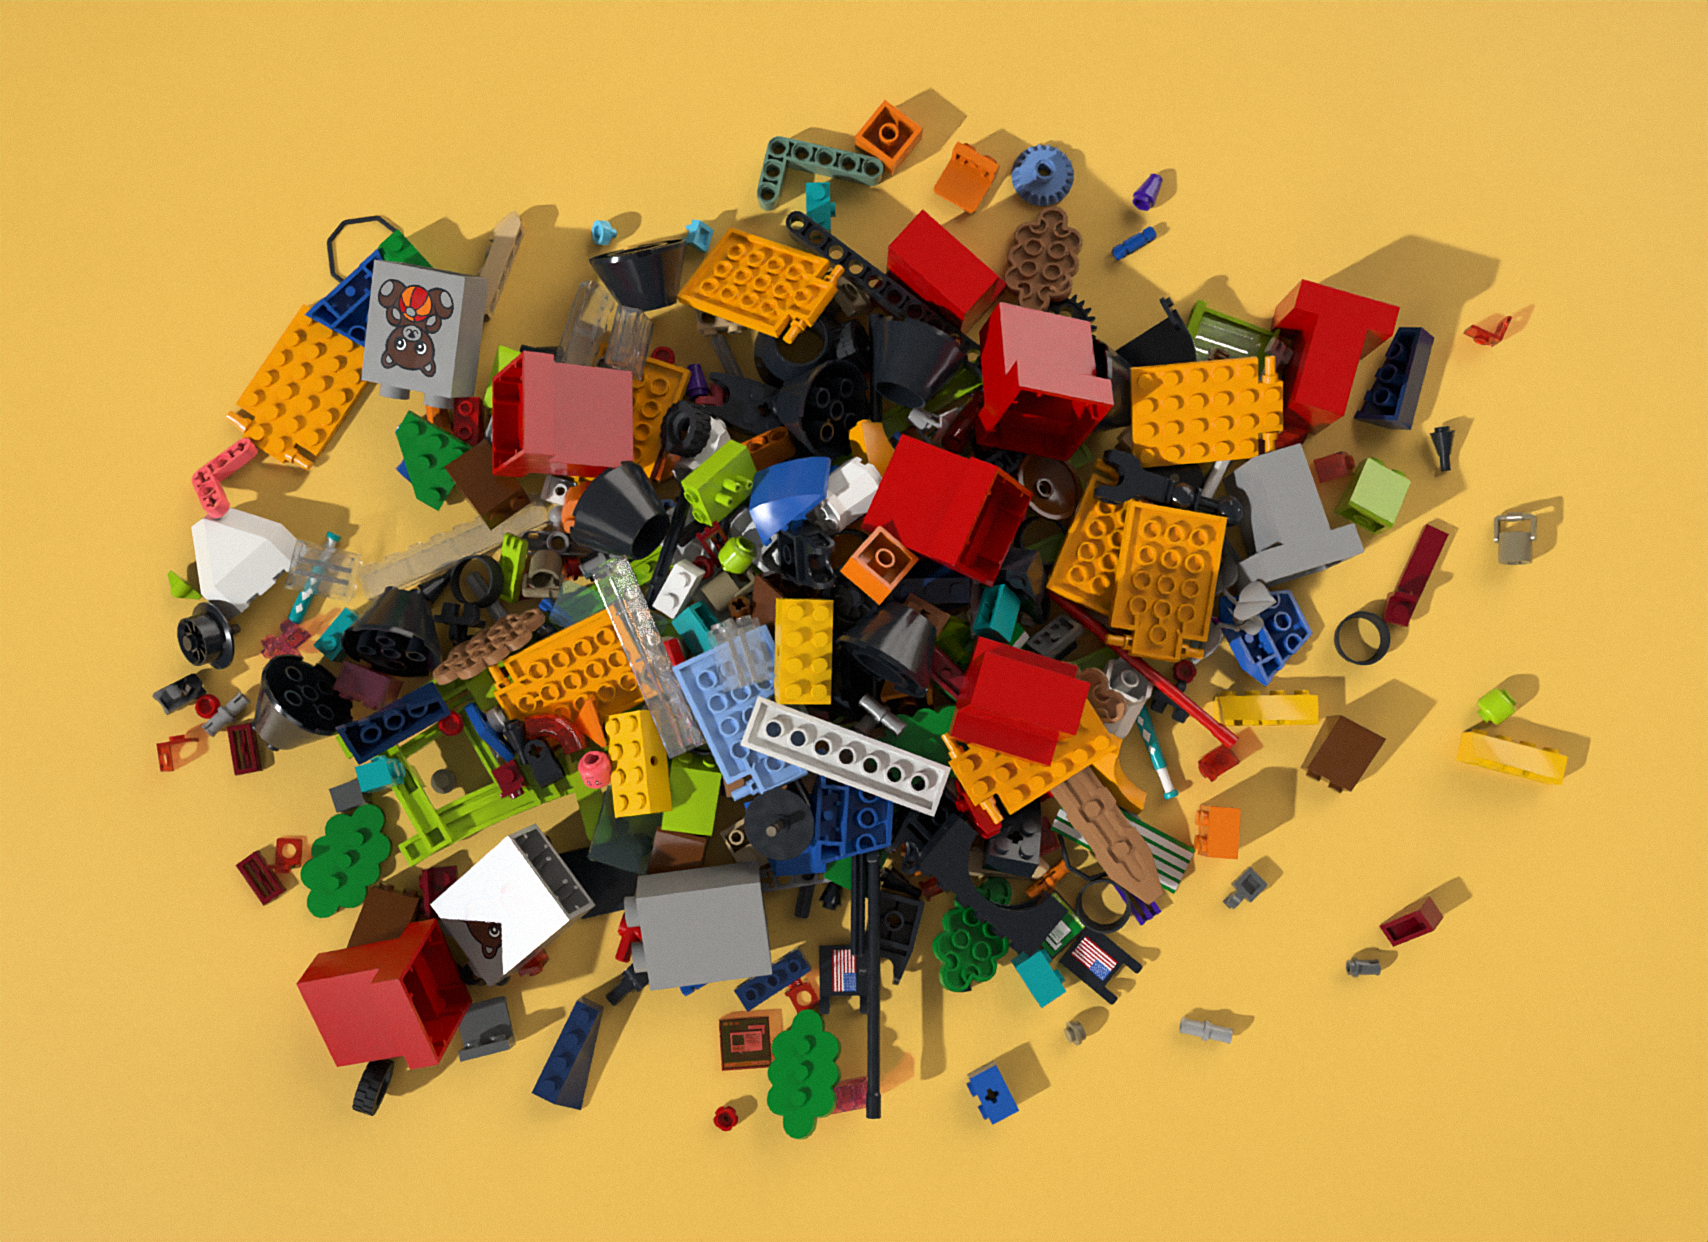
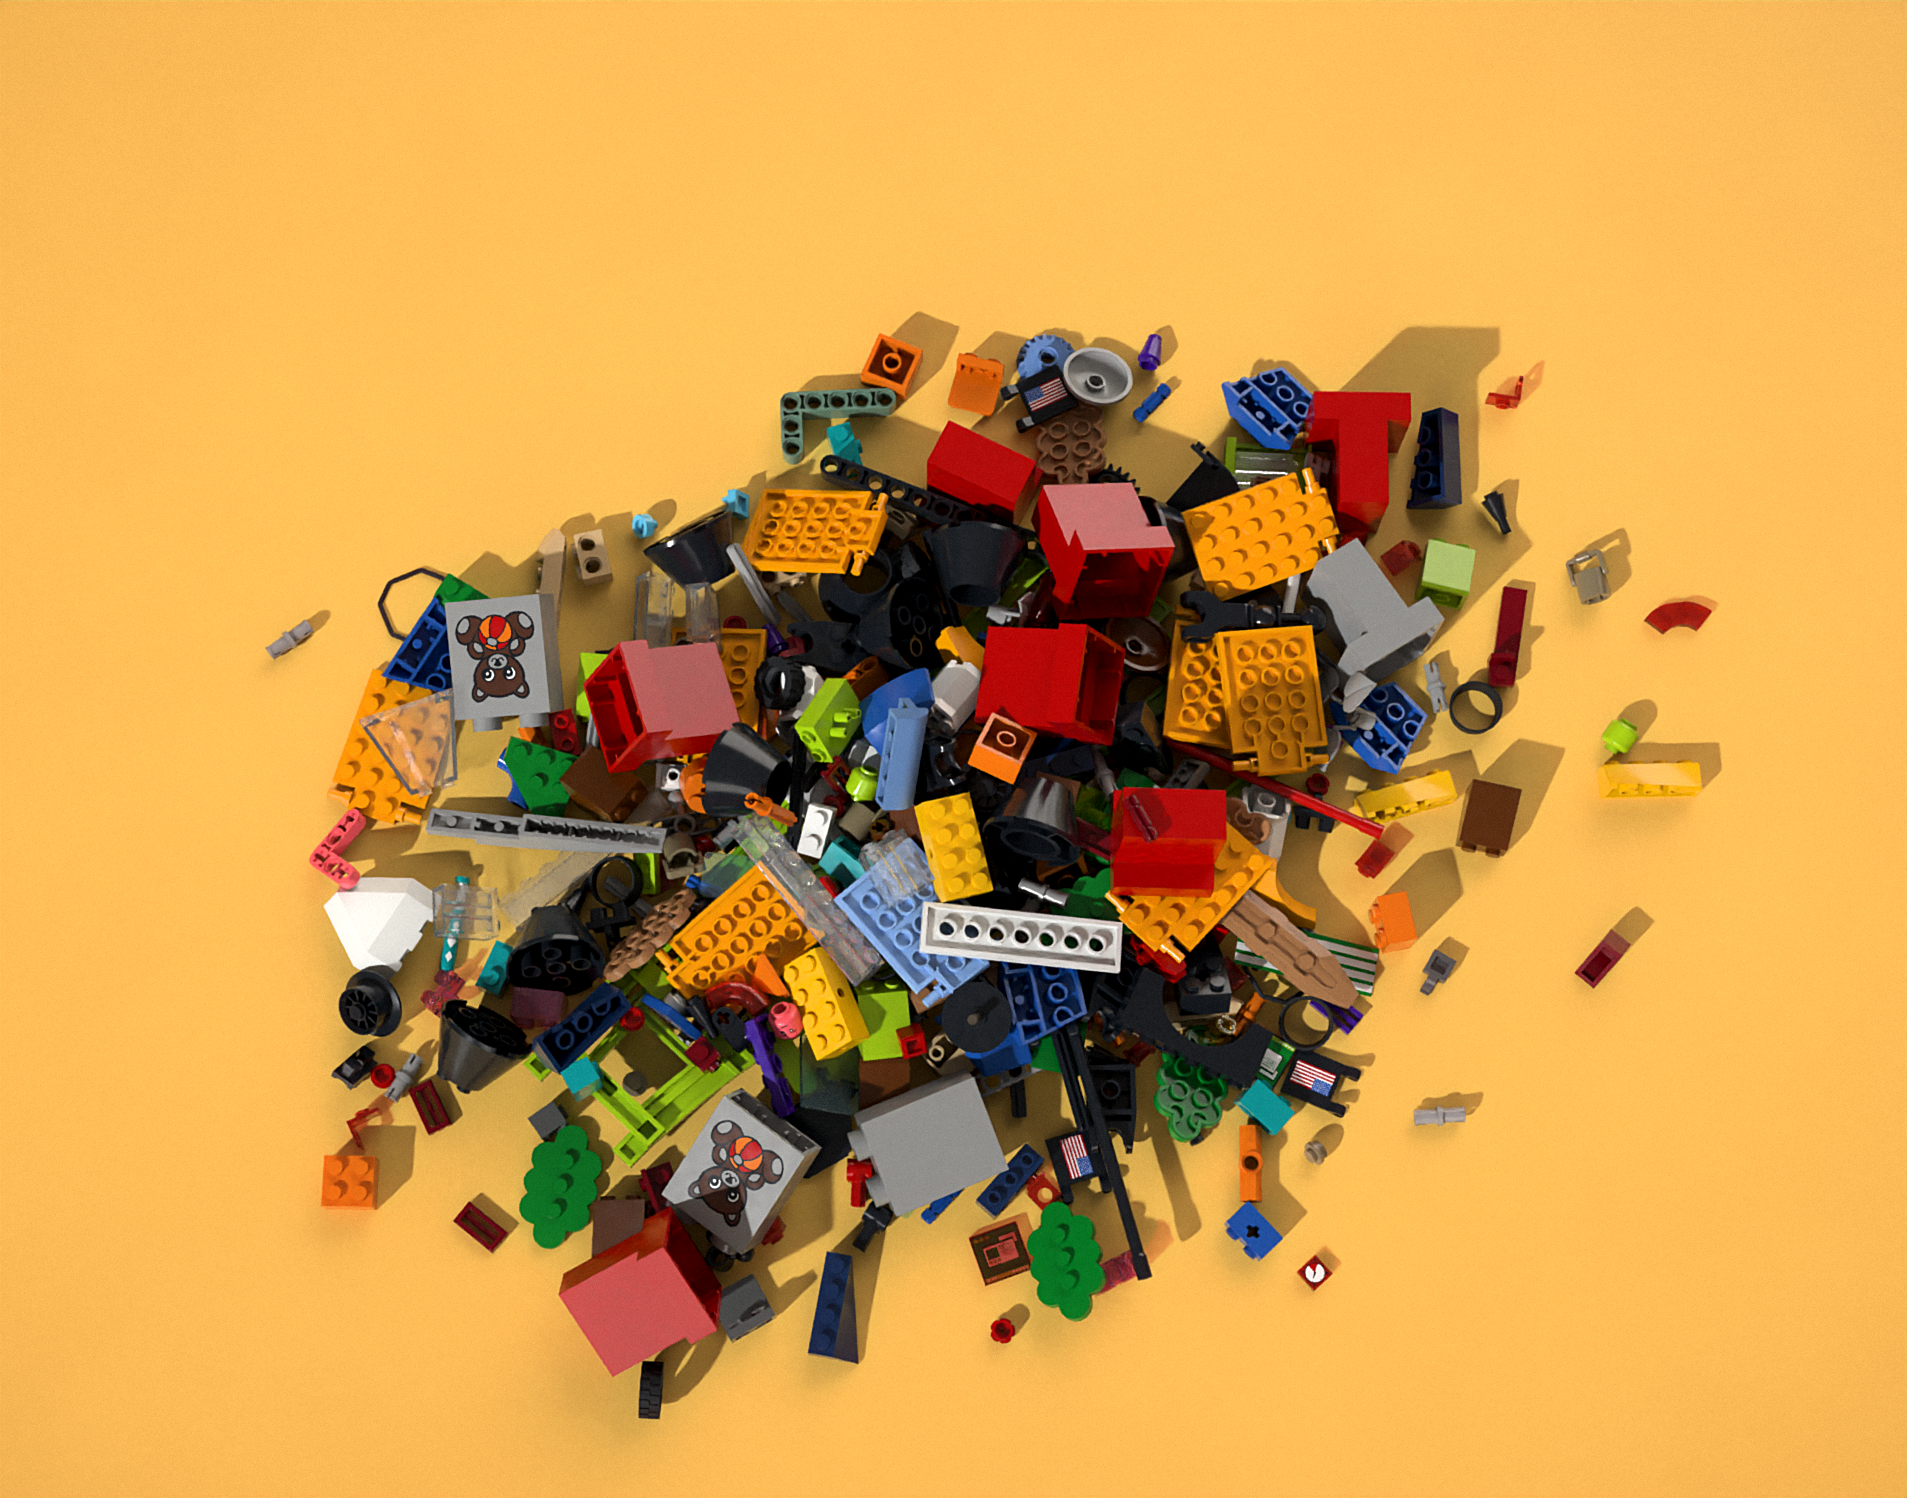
camera: 15 degrees left, 10 degrees down
(146, 802) = (350, 1182): none -> orange brick
(181, 588) = (327, 970): lime piece -> none
(231, 253) = (289, 639): none -> light grey pin
(283, 864) = (504, 1206): clear red bracket -> none
(319, 390) = (418, 741): none -> clear cone
(422, 514) = (546, 832): none -> light grey slope
(549, 250) = (595, 557): none -> tan brick
(568, 808) = (770, 1063): none -> dark purple wing
(629, 557) = (765, 807): none -> orange axle
(689, 321) = (753, 583): none -> light grey axle
(712, 823) = (911, 1041): none -> red slope
(775, 544) = (901, 756): none -> medium blue brick
(832, 896) = (1044, 1088): black cone -> none
(993, 691) = (1140, 819): none -> dark red axle
(997, 614) = (1123, 767): teal brick -> none
(1005, 1042) = (1250, 1147): none -> orange piece
(1020, 888) = (1224, 1026): none -> clear yellow bush
(1029, 208) = (1043, 397): none -> black flag
(1039, 1147) = (1314, 1273): none -> tile
(1088, 202) = (1097, 376): none -> light grey dish
(1152, 744) = (1301, 852): teal piece -> none
(1249, 279) = (1268, 406): none -> blue wedge
(1329, 606) = (1435, 687): none -> light grey pin
(1363, 967) = (1570, 1014): dark grey pin -> none
(1589, 599) = (1677, 615): none -> clear red tile

